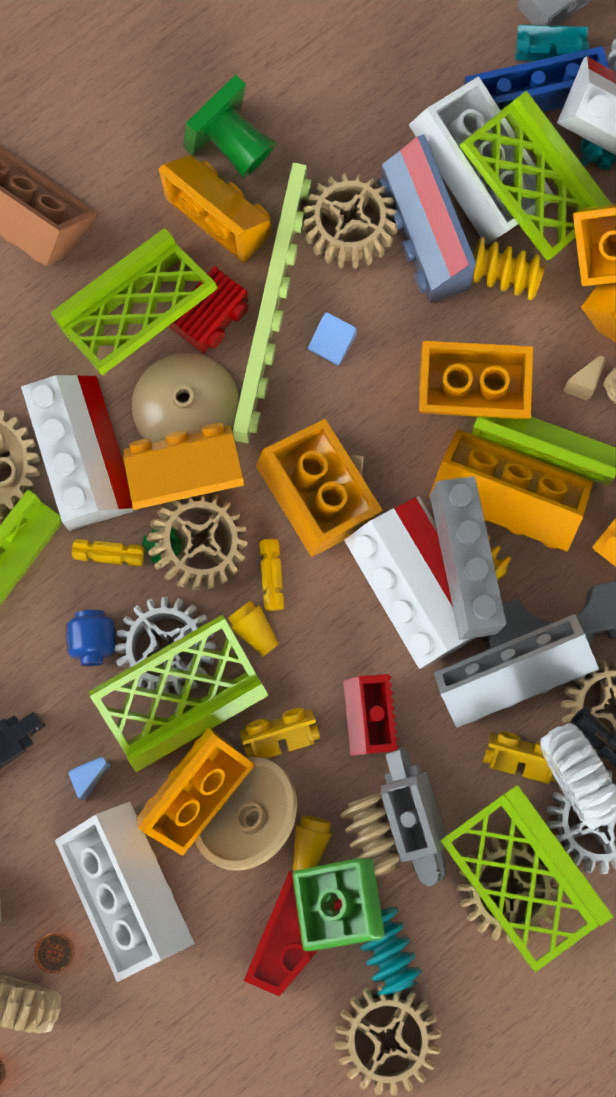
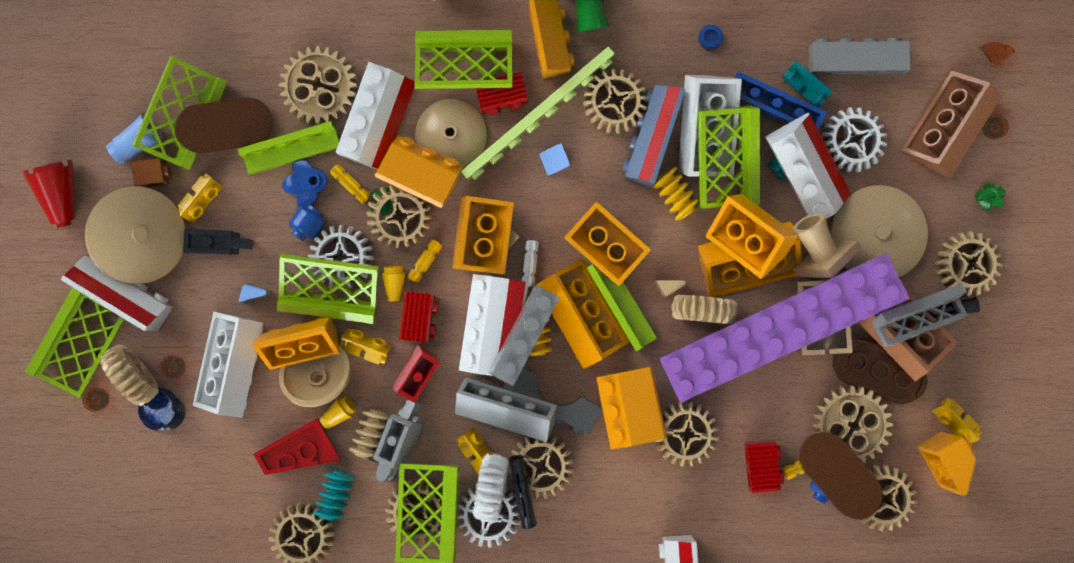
camera: 35 degrees right, 10 degrees up
(49, 598) = (301, 183): none -> blue plate
(84, 1020) = (162, 412): none -> clear blue piece
(316, 646) = (417, 317): none -> red brick
(360, 912) = (311, 460): bright green brick -> none
(398, 475) = (530, 262): none -> white axle
(399, 75) = (710, 37): none -> blue tile

